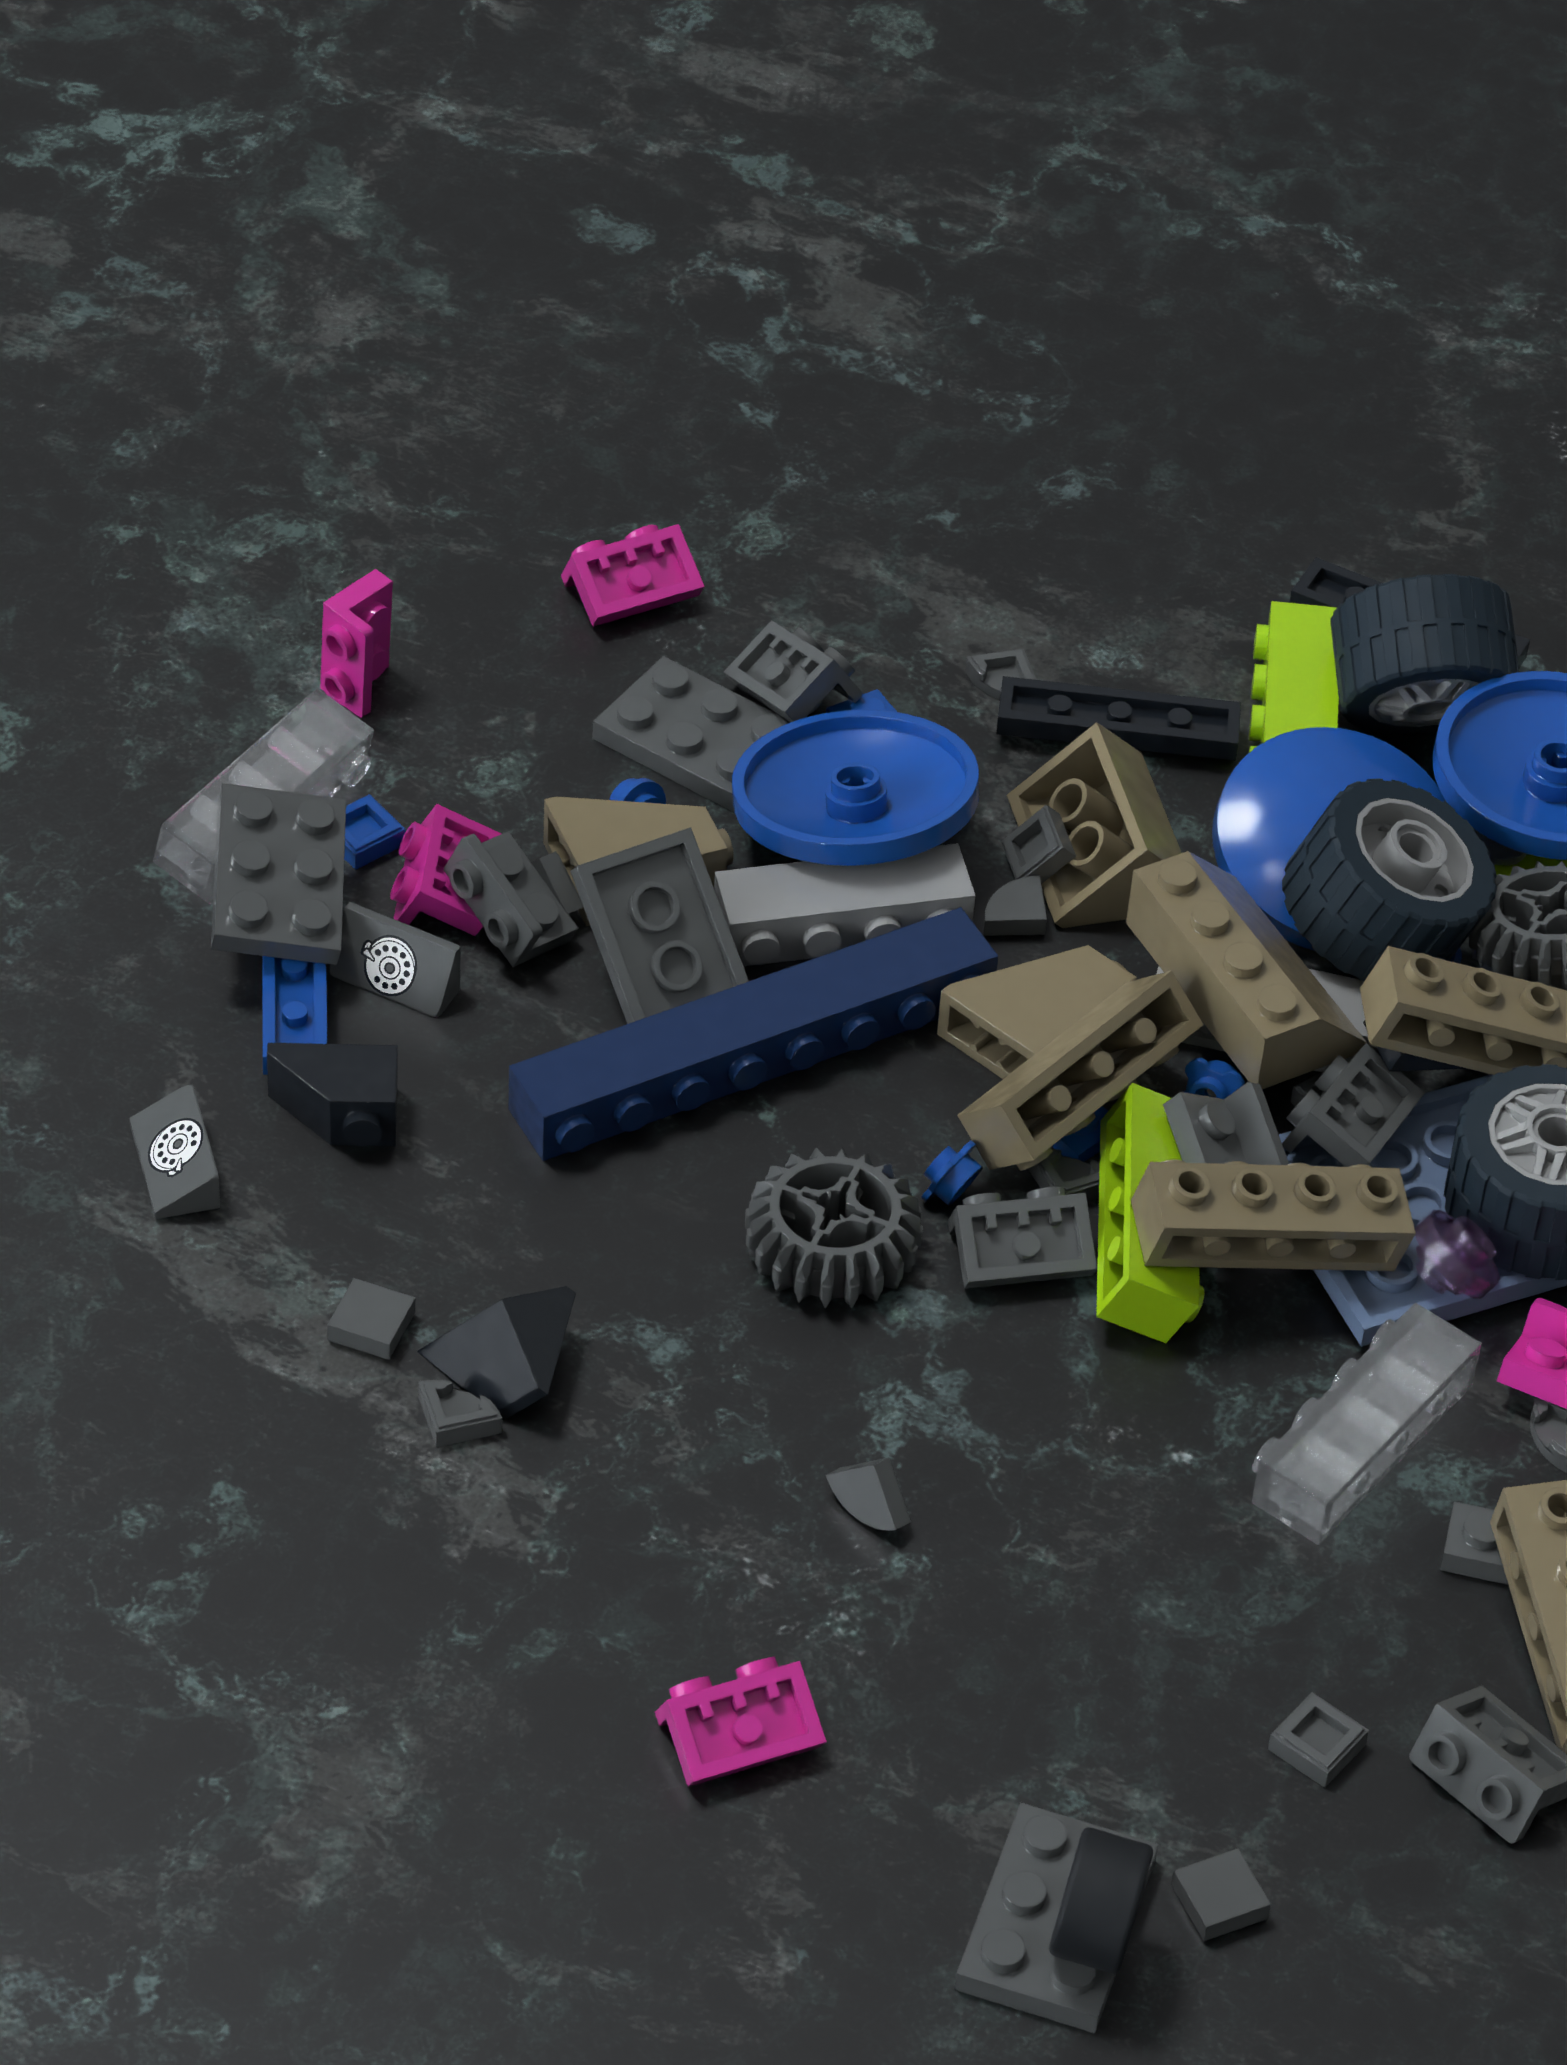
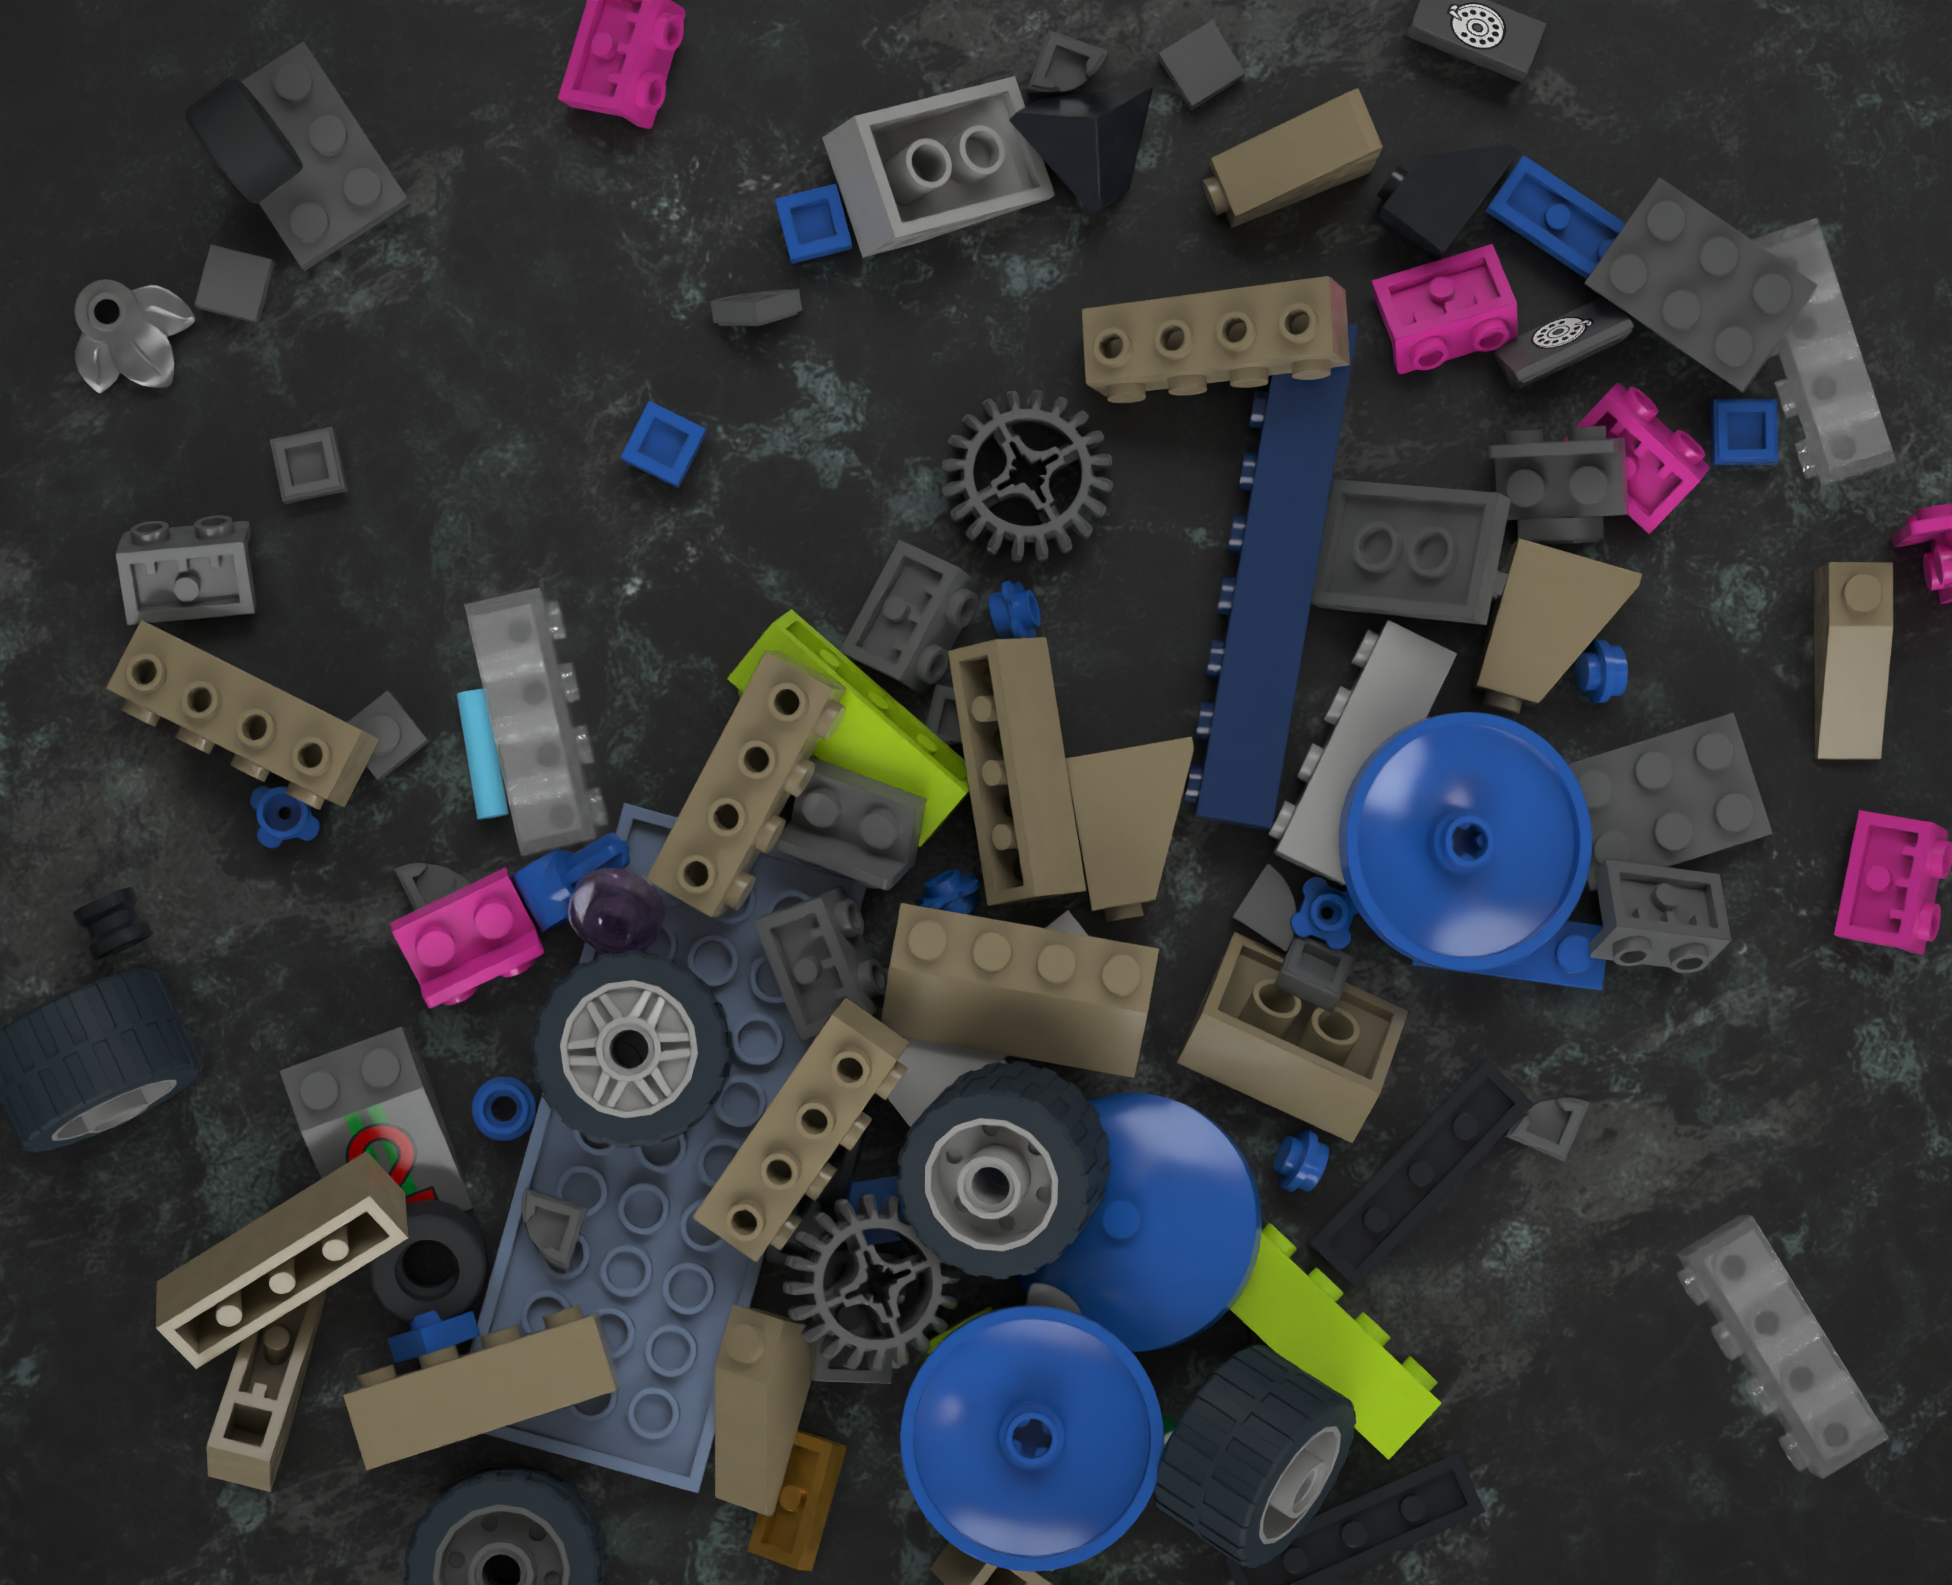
camera: 125 degrees right, 40 degrees up
(402, 1184) = (1294, 160): none -> dark tan slope
(436, 1044) = (1447, 309): none -> dark pink bracket
(475, 679) = (1852, 657): none -> dark tan slope
(610, 1138) = (1216, 338): none -> dark tan brick
(636, 1434) = (935, 166): none -> light grey slope
(760, 1494) = (813, 223): none -> blue plate
(990, 868) = (1309, 919): none -> blue plate
(1029, 472) = (1781, 1346): none -> clear brick
(1048, 1486) = (663, 444): none -> blue plate
(1184, 784) = (1301, 1161): none -> blue plate
(1345, 1946) = (135, 341): none -> flat silver plate
(1423, 1463) = (482, 755): none -> medium azure piece
(1482, 1319) = (550, 880): none -> blue axle

